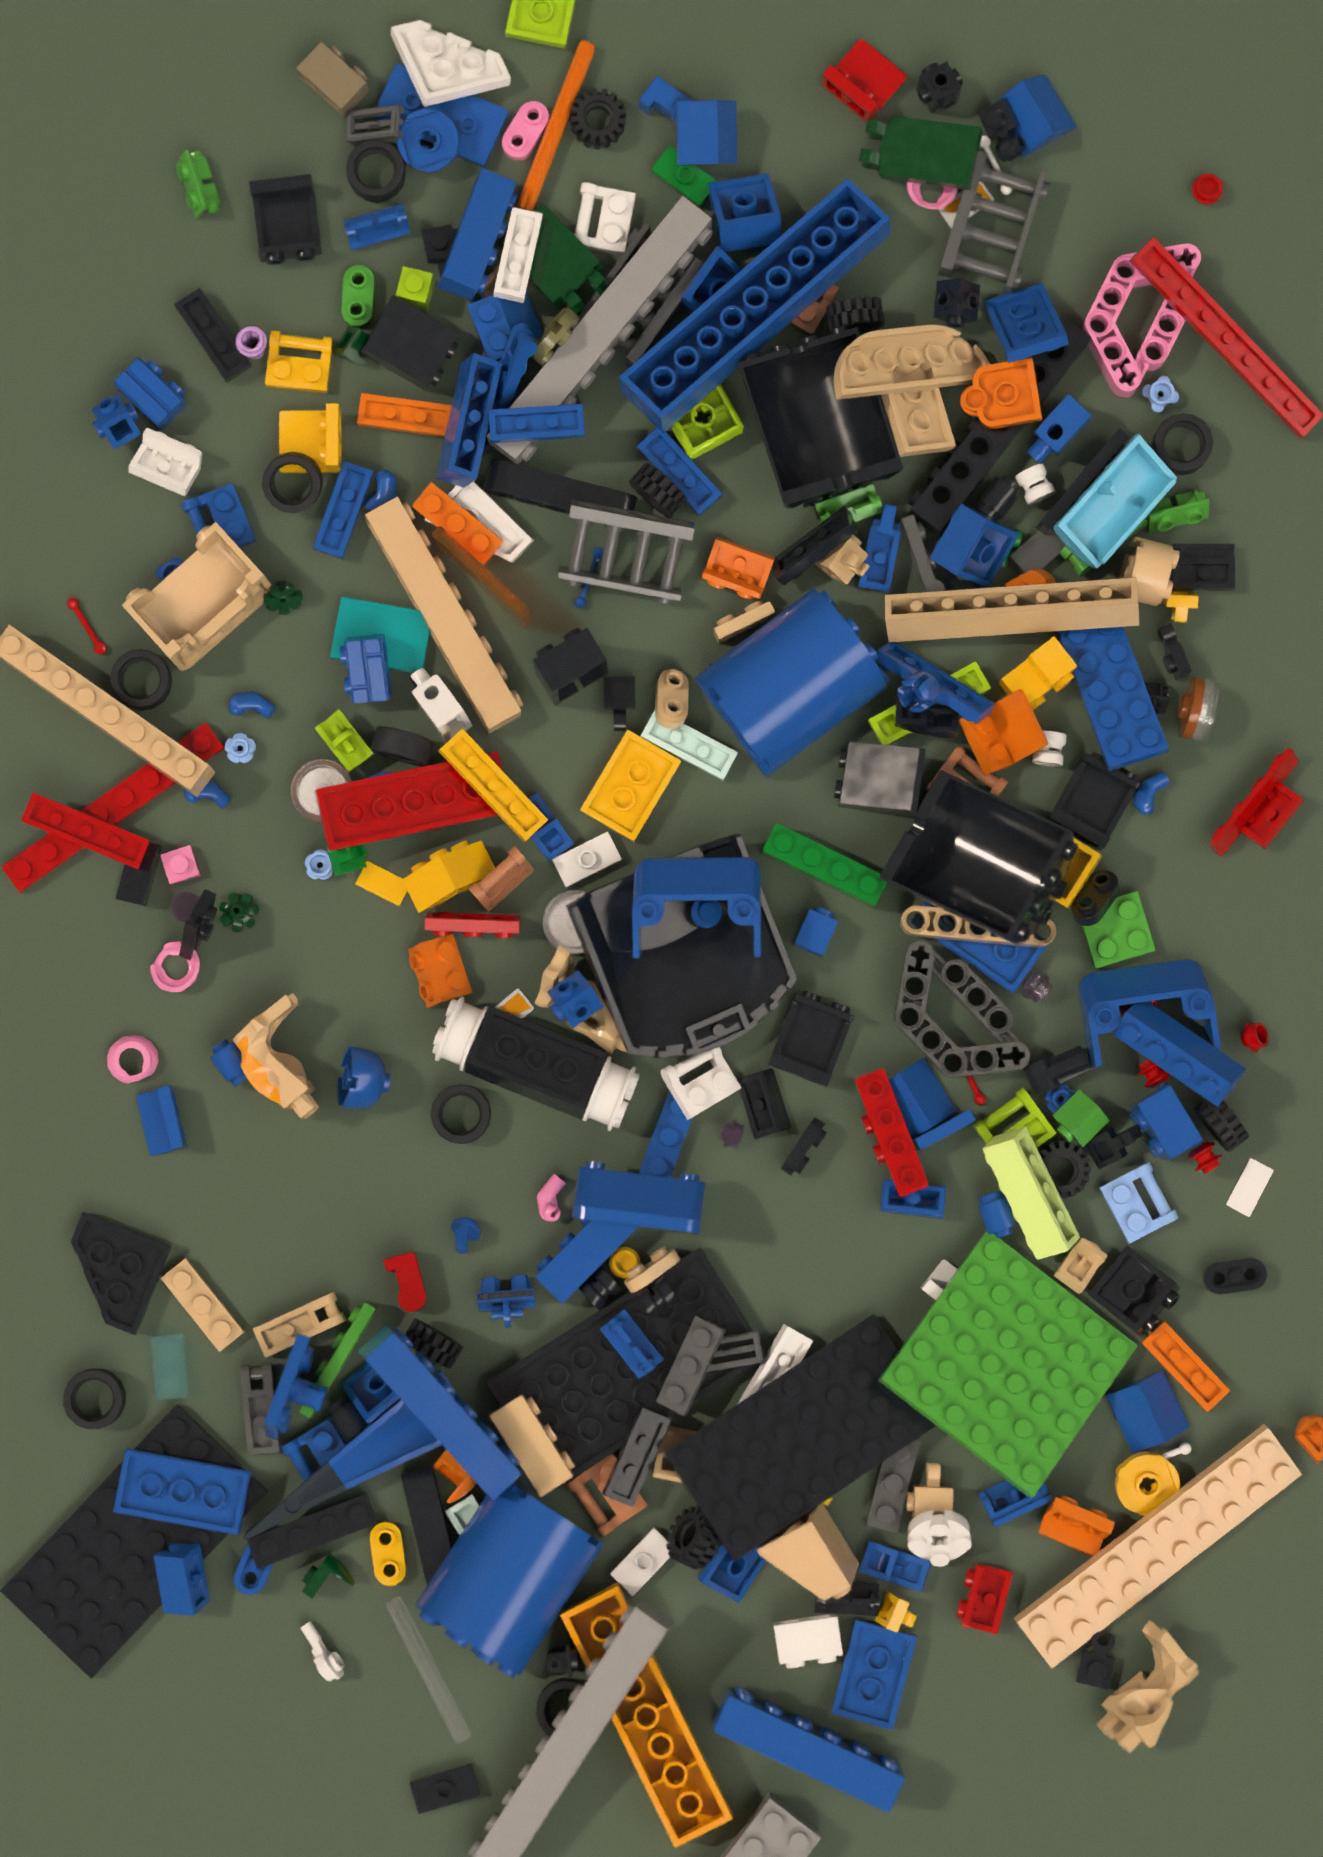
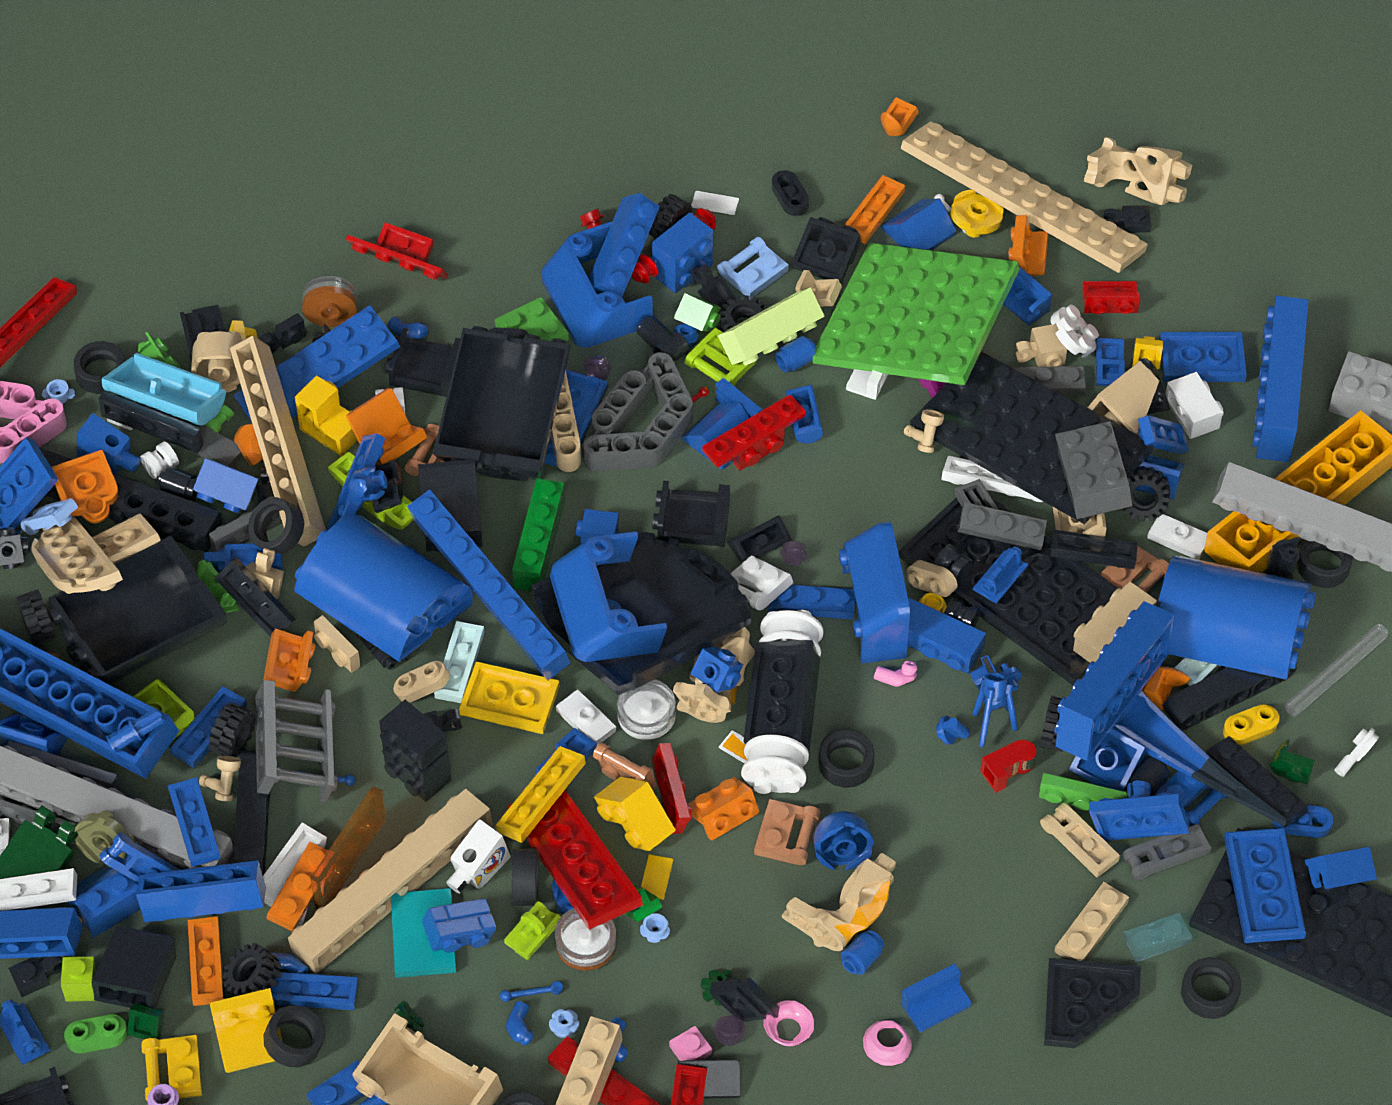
camera: 105 degrees left, 30 degrees down
(285, 752) = (556, 988): none -> blue hinge
(367, 467) = (242, 966): none -> black tyre
(399, 1019) = (777, 829): none -> nougat plate
(481, 1287) = (994, 688): none -> blue plant
(615, 476) = (223, 786): none -> tan piece
(649, 380) = (135, 730): none -> blue axle
(707, 1479) = (1093, 470): none -> dark grey brick
(755, 789) = (489, 585): none -> blue brick
(758, 1582) = (1162, 434): none -> blue plate
(812, 1136) = (786, 498): black plate -> none
(854, 1332) = (931, 419): none -> tan piece
(898, 601) = (260, 518): none -> black tyre
(974, 351) = (49, 515): none -> light blue hinge

